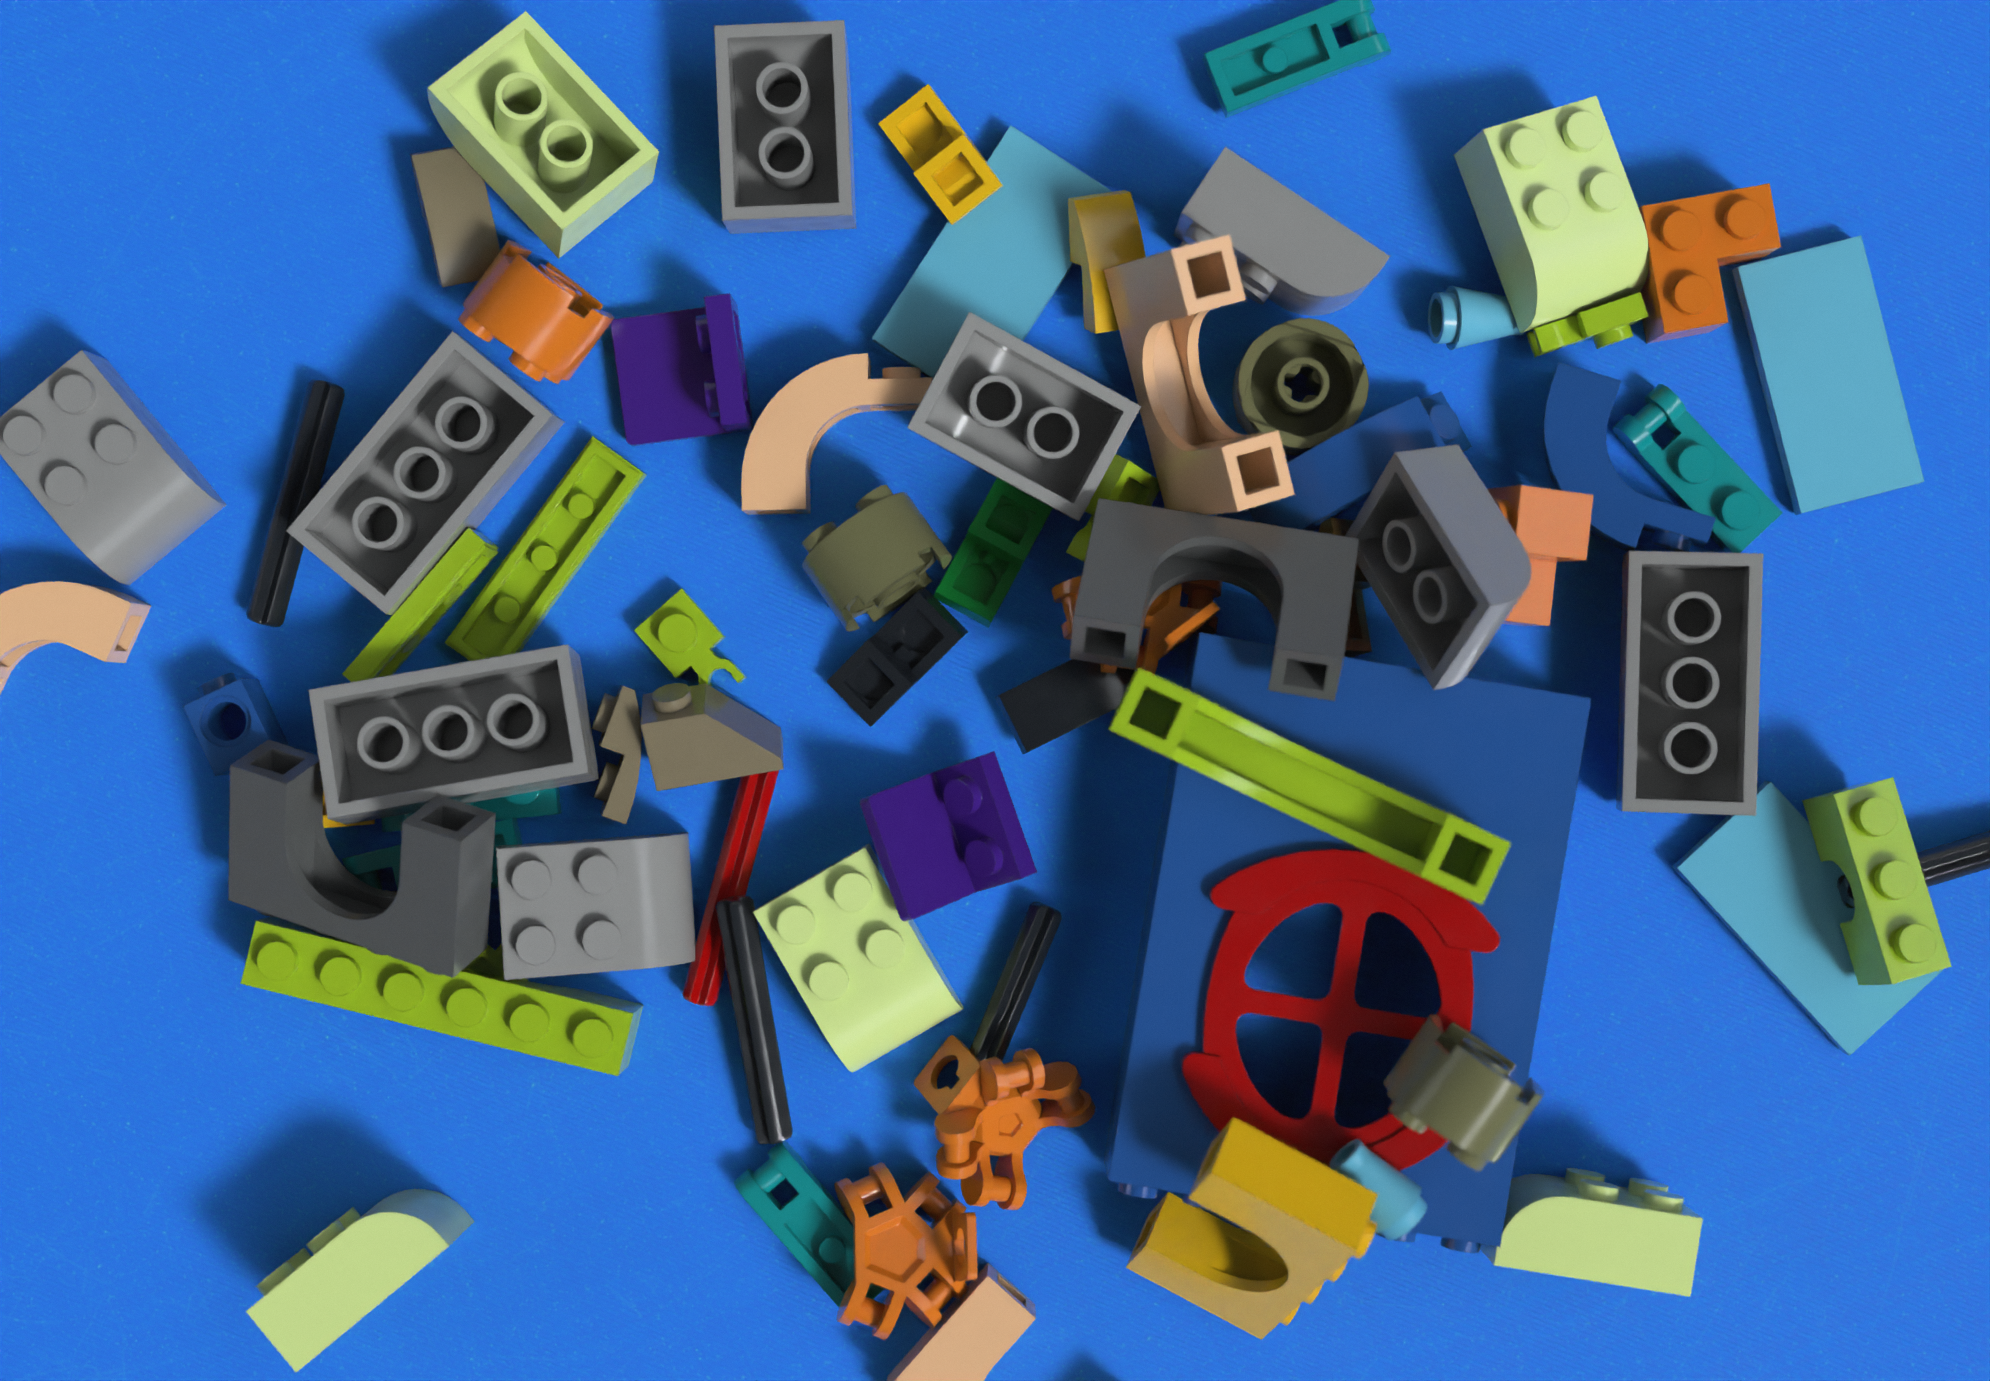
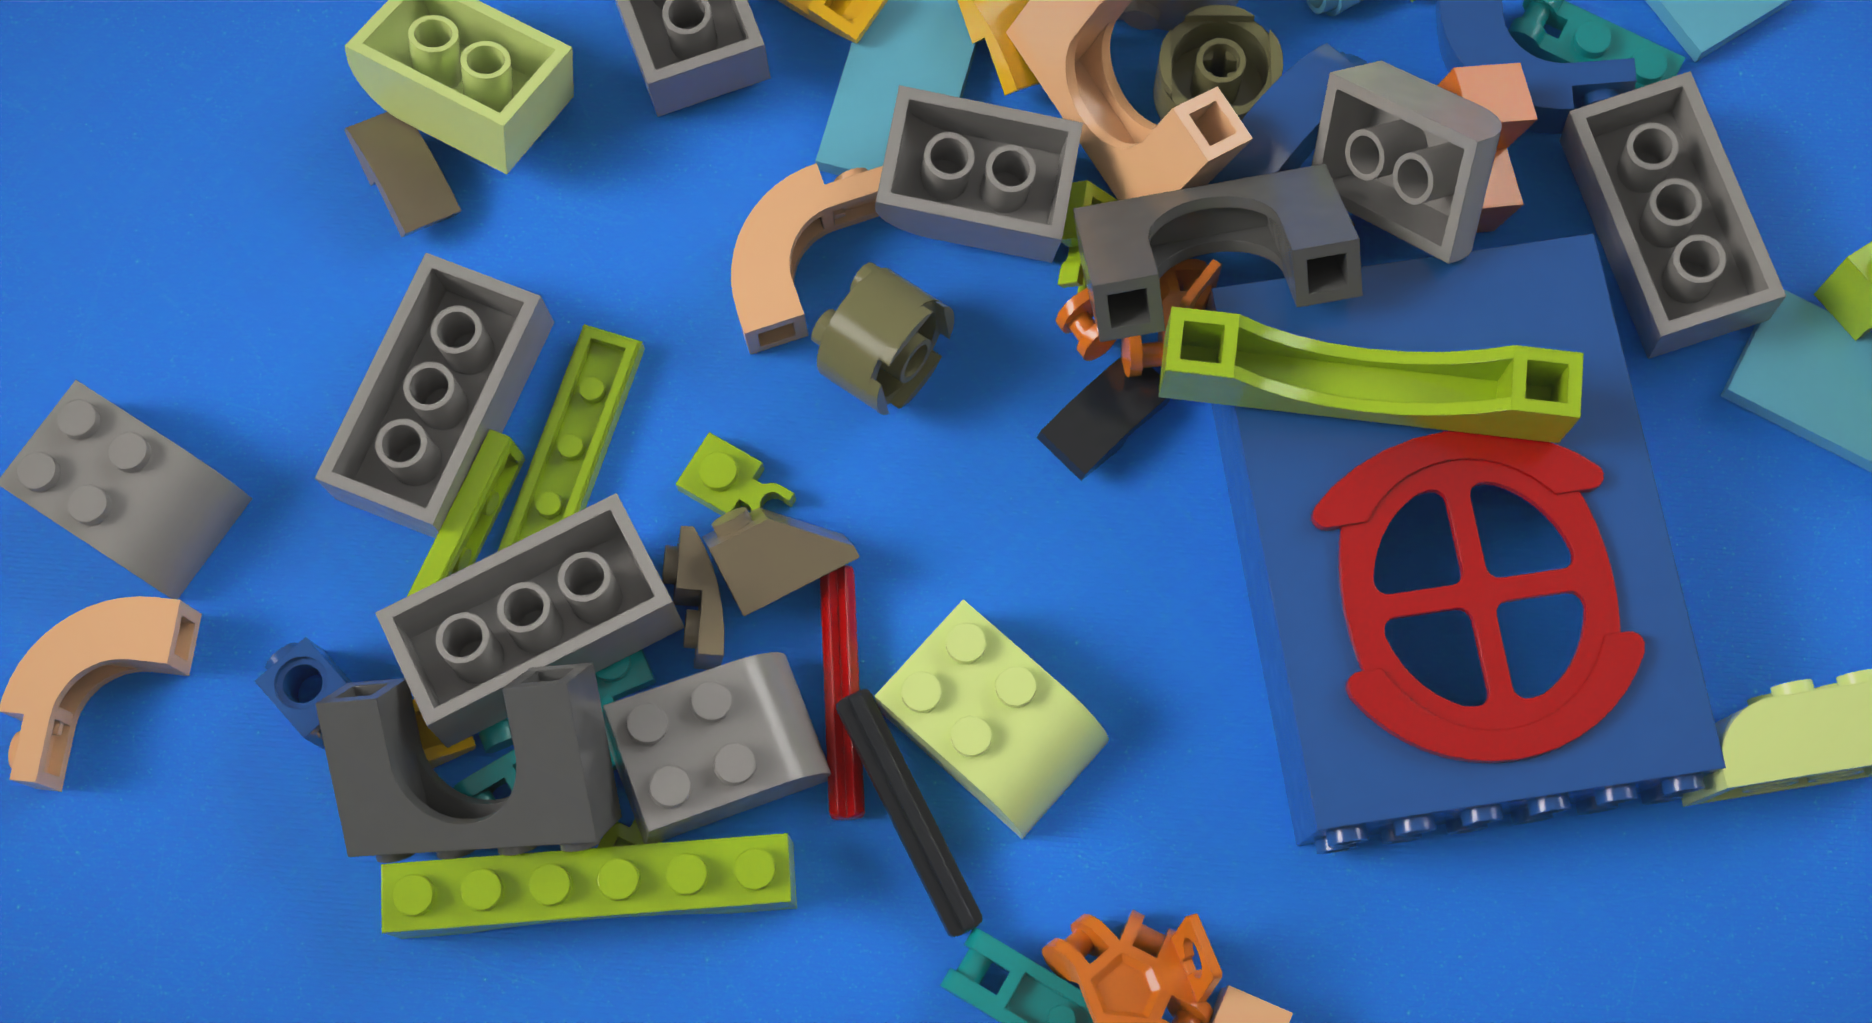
camera: 20 degrees left, 15 degrees down
(298, 488) = (315, 504): black axle -> none
(536, 314) = (500, 222): orange brick -> none
(682, 373) = (653, 242): dark purple bracket -> none
(897, 656) = (932, 432): black slope -> none
(947, 835) = (1040, 568): dark purple bracket -> none
(992, 552) = (989, 313): green slope -> none
(997, 1114) = (1179, 828): orange piece -> none
(1016, 982) = (1148, 742): black axle -> none
(1300, 1222) = (1498, 766): yellow arch -> none
(1398, 1199) = (1589, 740): medium azure cone -> none
(1460, 1092) = (1634, 605): olive brick -> none

